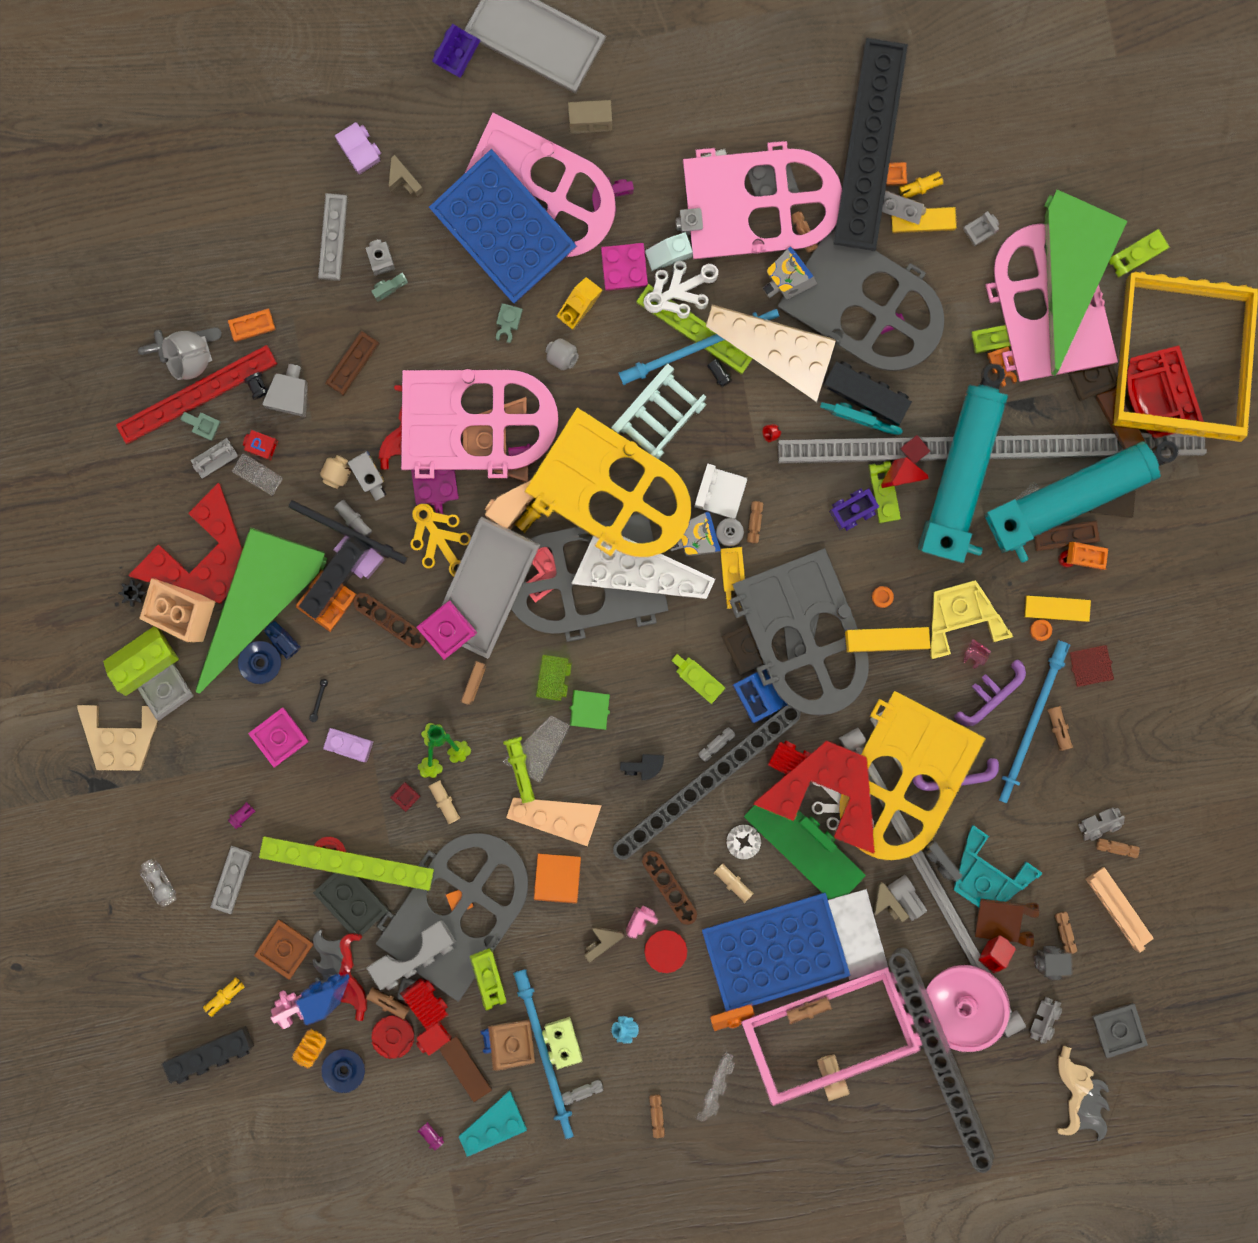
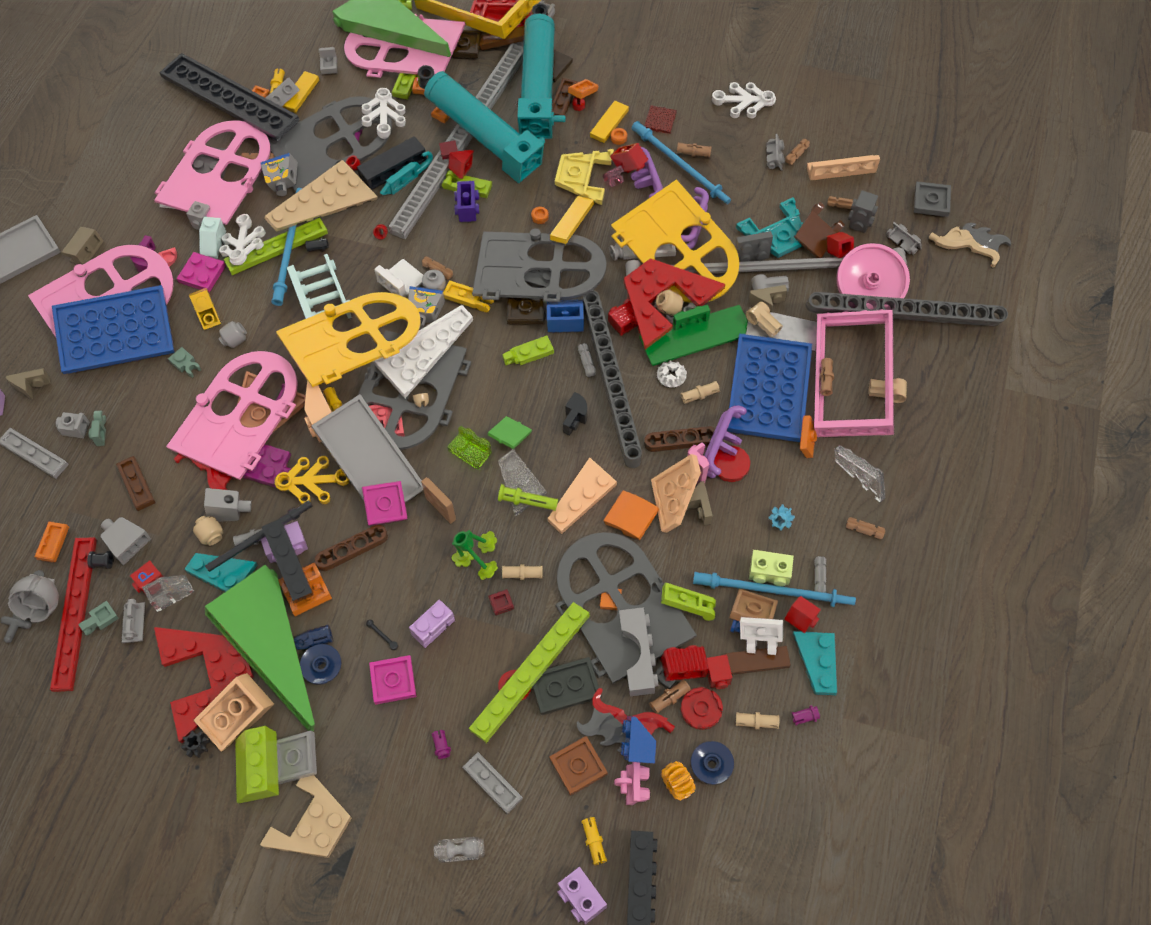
camera: 55 degrees left, 25 degrees down
(170, 1010) = (581, 895): none -> lavender brick
(301, 489) = (223, 576): none -> teal wing
(404, 1094) = (757, 720): none -> tan pin
(486, 1063) = (762, 630): none -> white plate
(528, 1094) = (803, 614): none -> red brick
(577, 601) = (421, 398): none -> tan hinge
(597, 913) = (674, 490): none -> light nougat plate
(625, 217) = (169, 255): none -> coral tile
(682, 928) = (719, 434): none -> medium lavender piece
(823, 803) = (669, 302): none -> tan head
(837, 350) = (353, 159): none -> red hinge
(855, 907) = (761, 315): none -> tan piece
(869, 708) = (615, 251): none -> light grey bush
(929, 345) = (383, 97): none -> white plant
(1002, 663) = (629, 157): none -> red brick
(1171, 753) = (764, 98): none -> white plant

